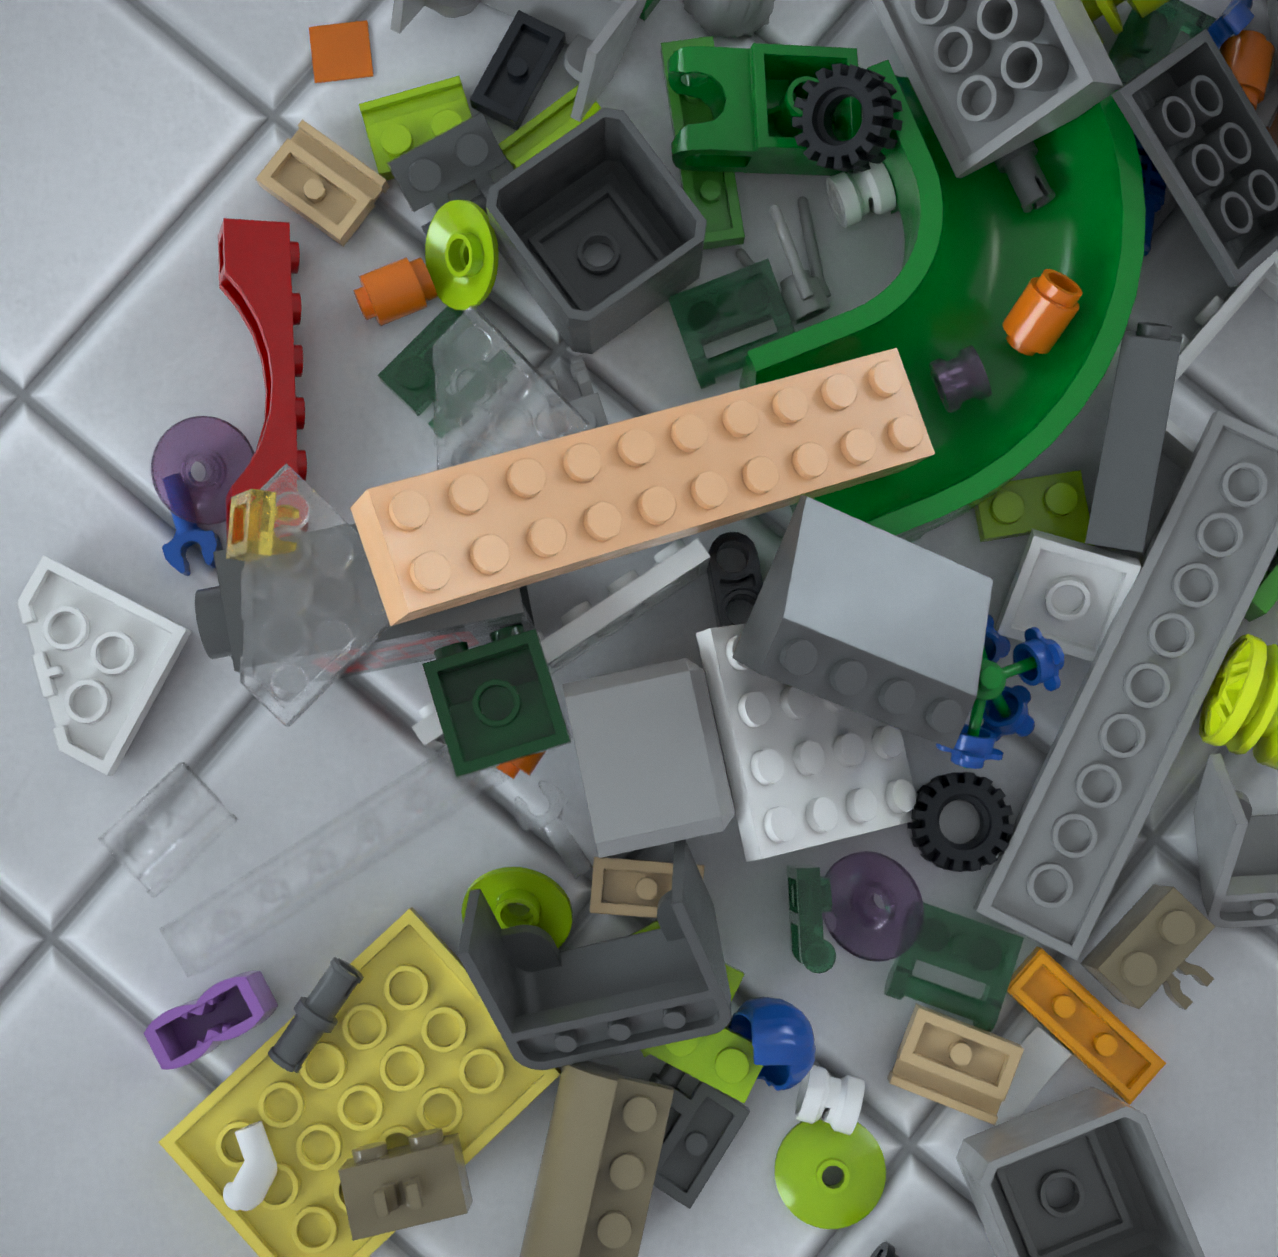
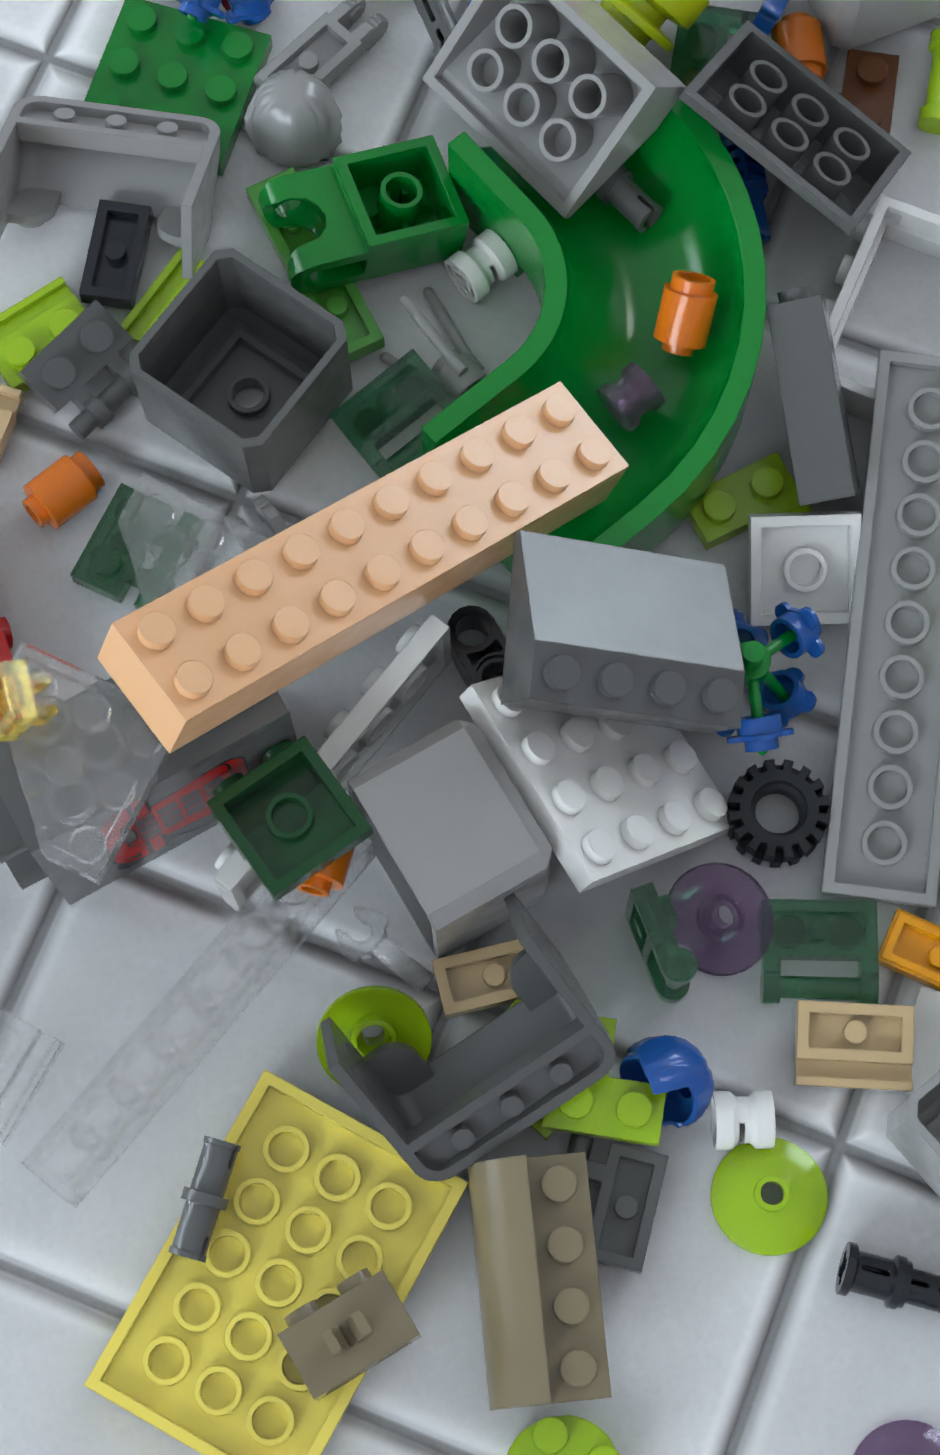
camera: 15 degrees left, 10 degrees down
(204, 1023) = (89, 1252): medium lavender brick -> none
(255, 1173) = (193, 1378): white arm -> none
(461, 254) = (118, 433): lime dish -> none
(818, 114) = (417, 186): black tyre -> none

